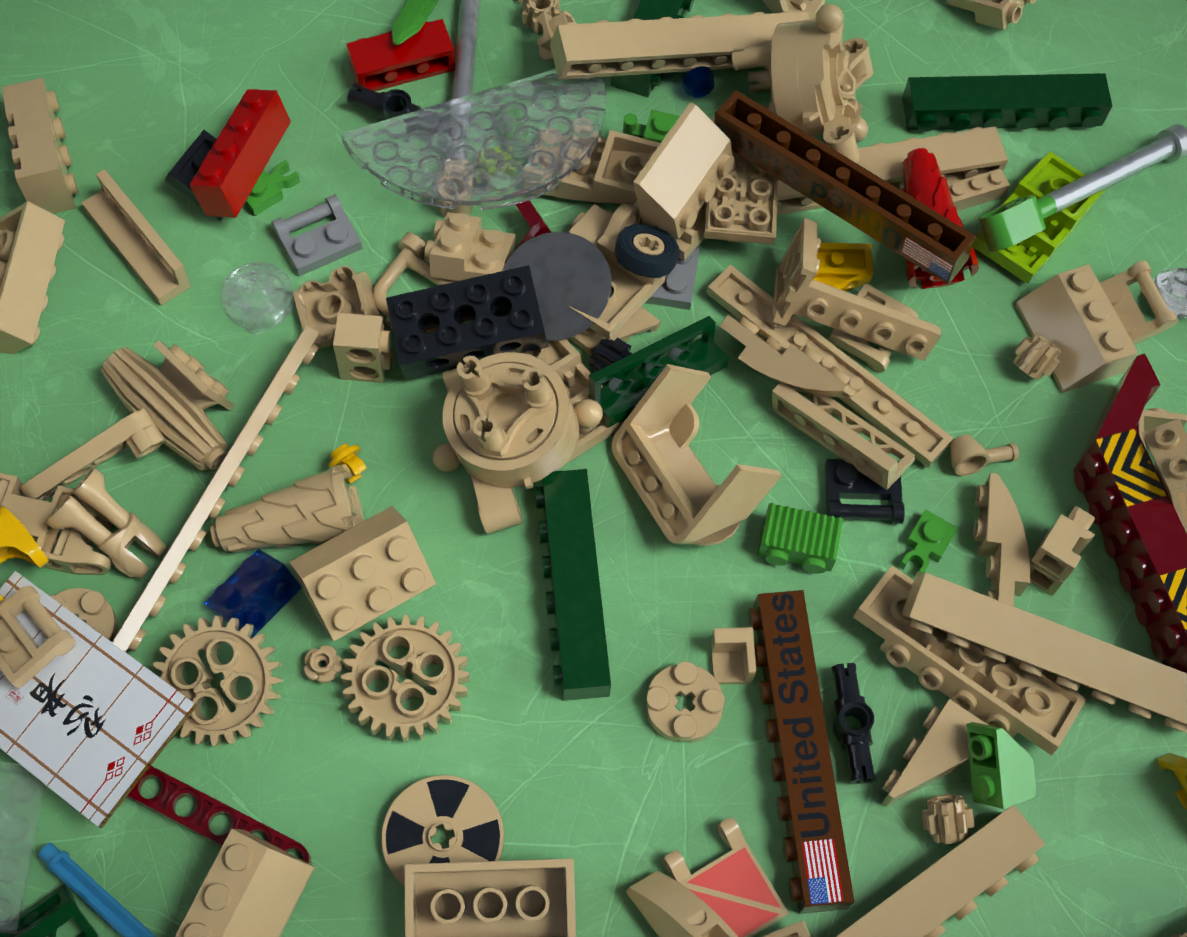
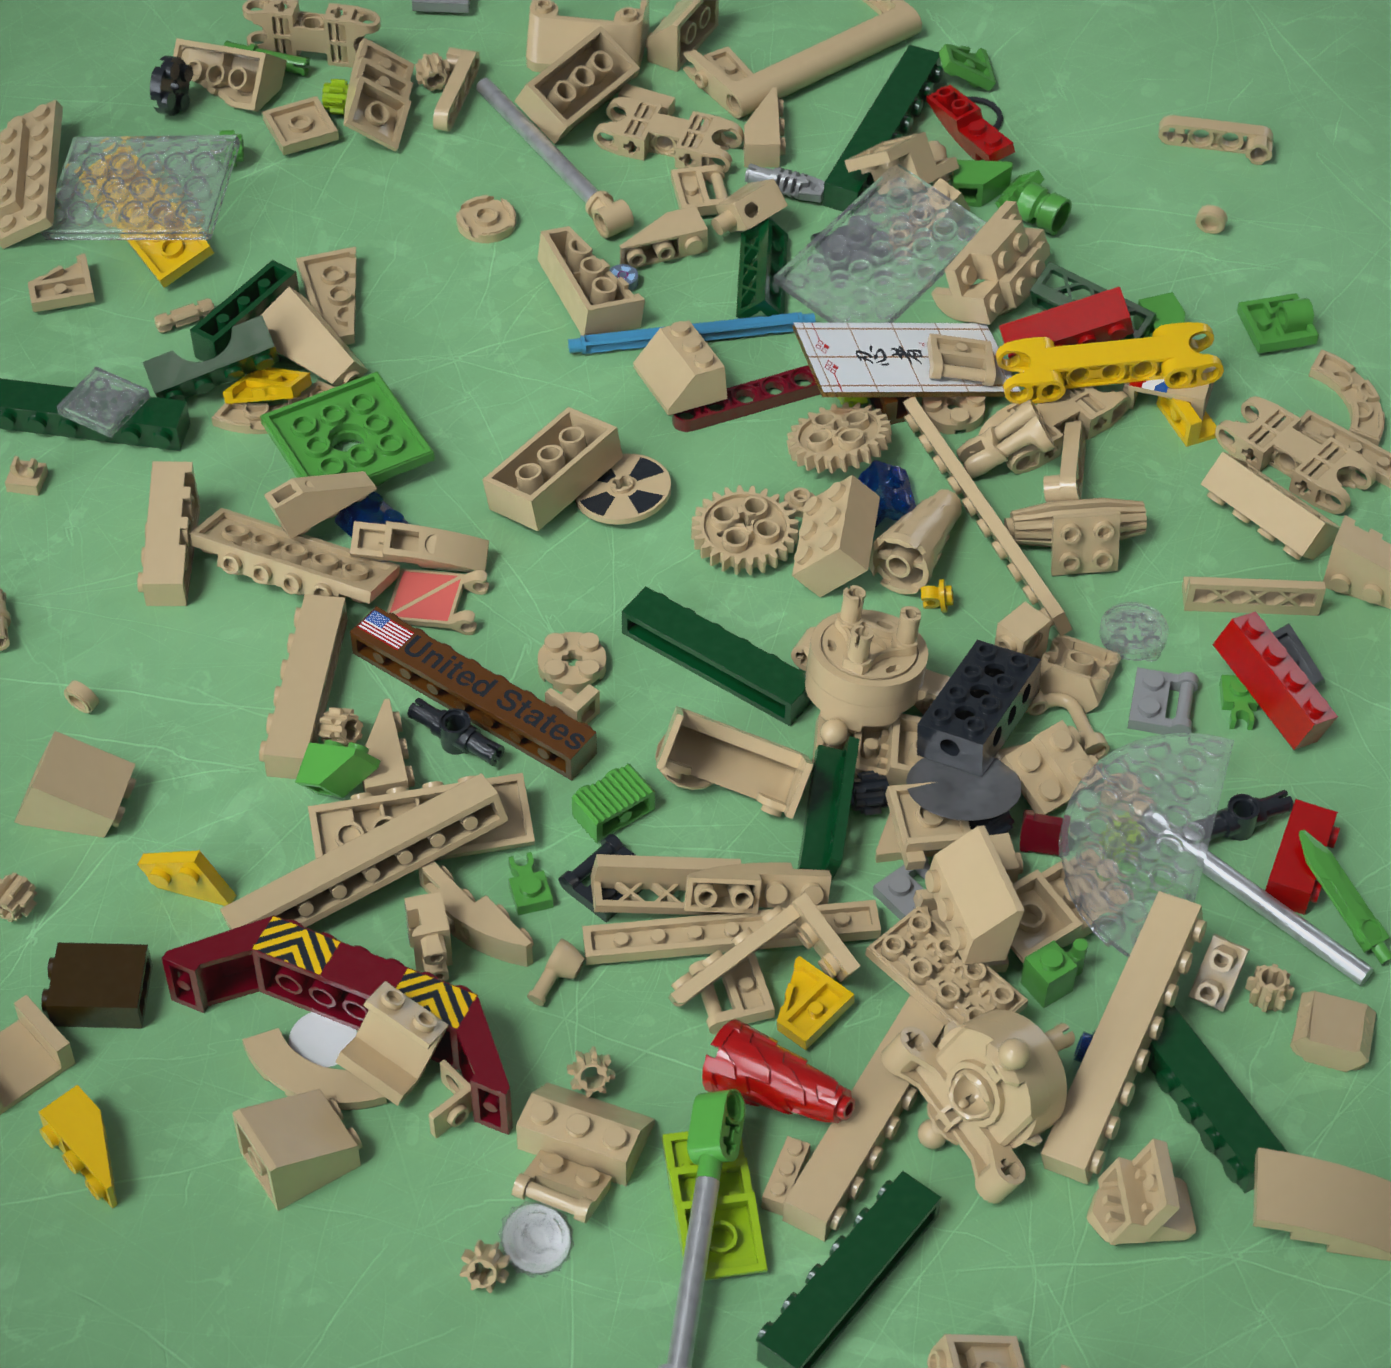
camera: 135 degrees right, 15 degrees down
(646, 250) = (922, 829): black bush -> none
(845, 188) = (856, 986): reddish brown brick -> none

